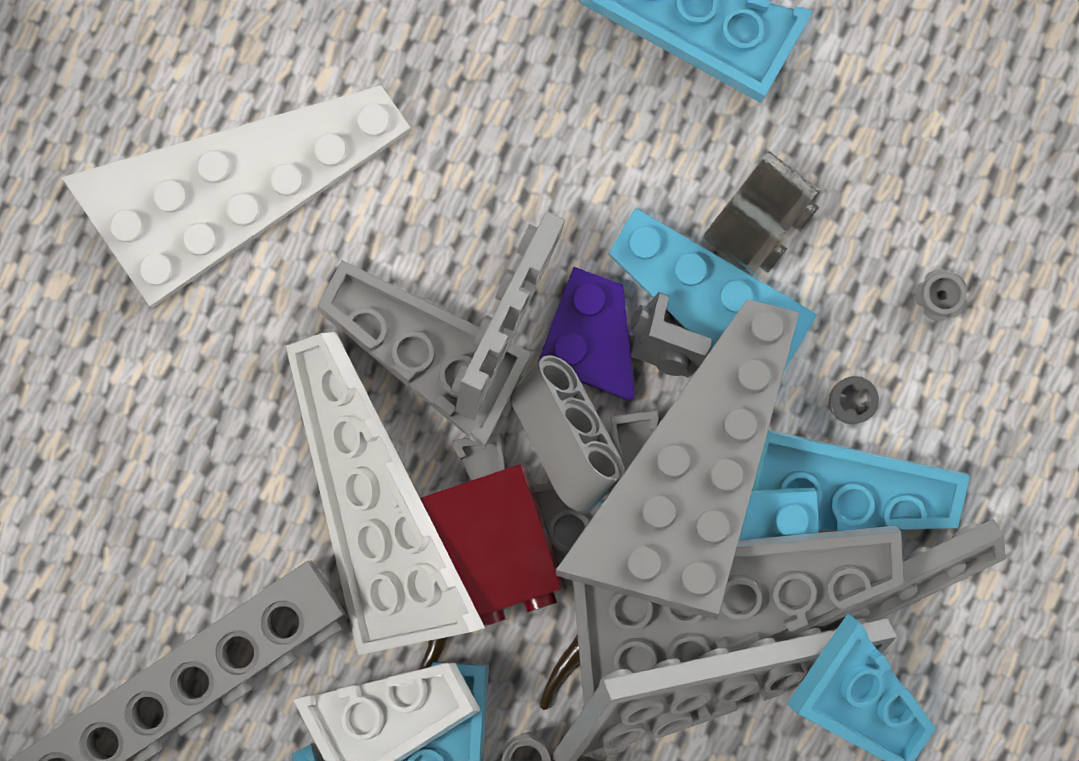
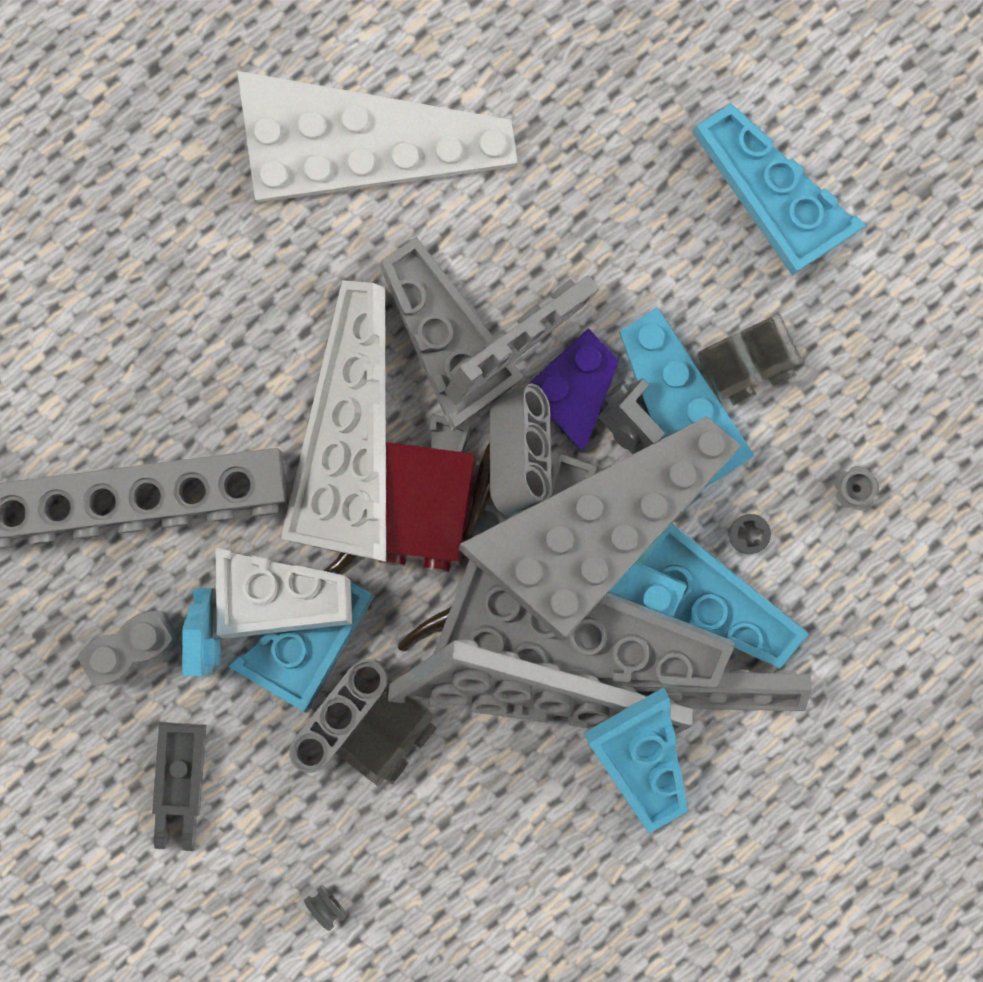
camera: 20 degrees right, 0 degrees up
(549, 502) = (481, 494): none -> dark brown animal

